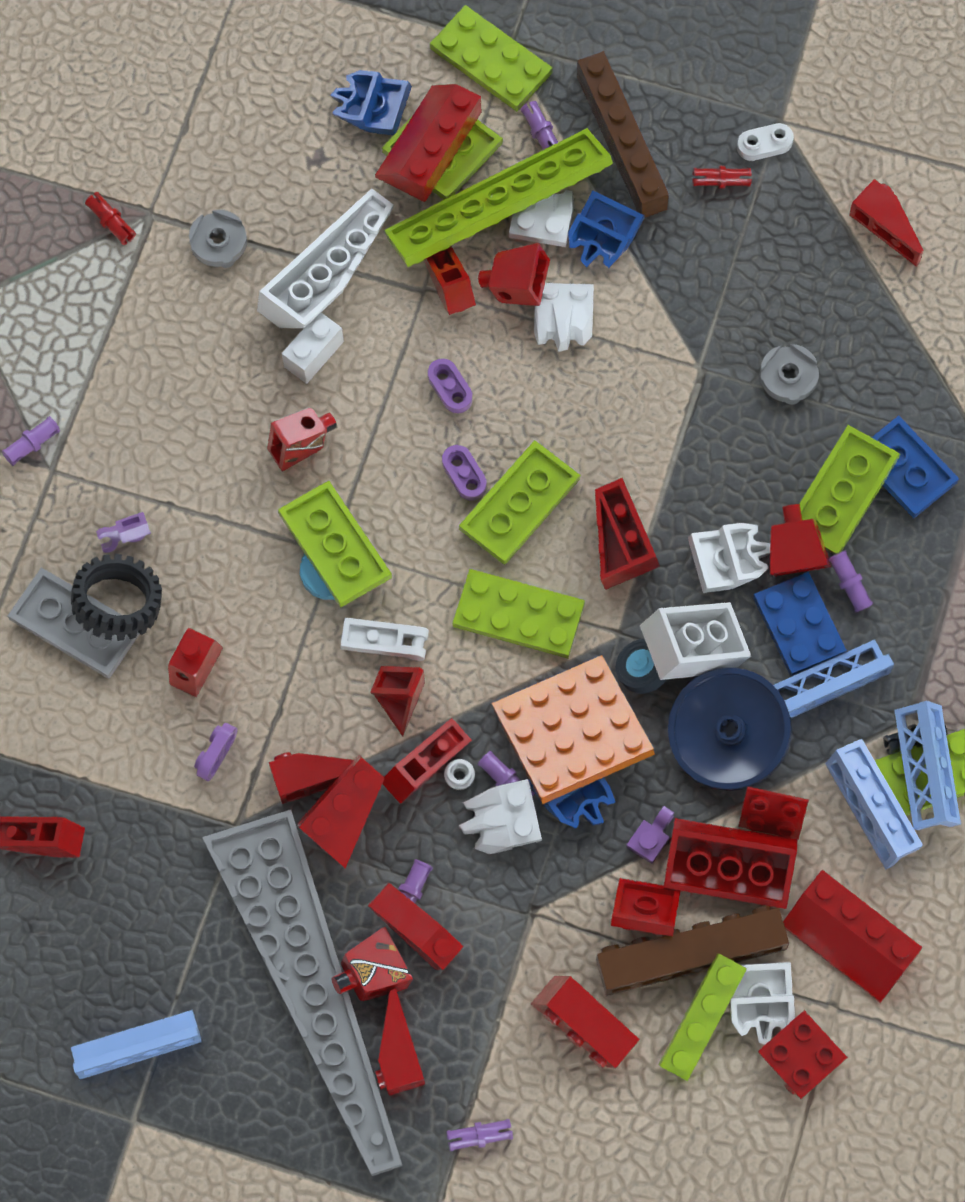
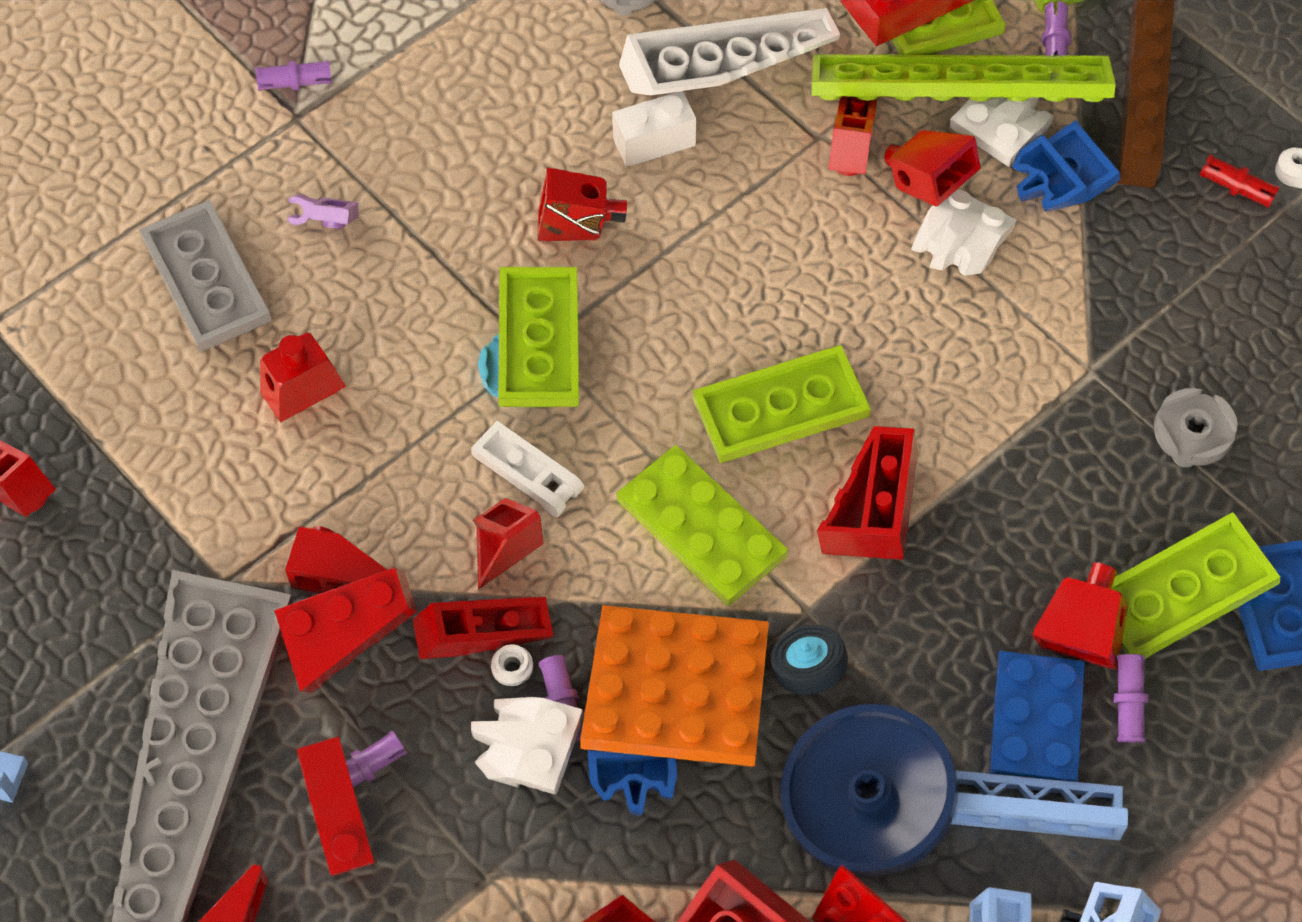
camera: 30 degrees right, 10 degrees down
(121, 570) = (254, 297): black tyre -> none
(209, 761) = (255, 488): medium lavender plate -> none
(373, 968) = (254, 827): red torso -> none
(451, 387) = (782, 245): medium lavender plate -> none
(465, 474) = (737, 343): medium lavender plate -> none
(649, 838) = (689, 867): medium lavender plate -> none
(694, 640) = (887, 656): white brick -> none
(728, 556) = (993, 590): white plate -> none

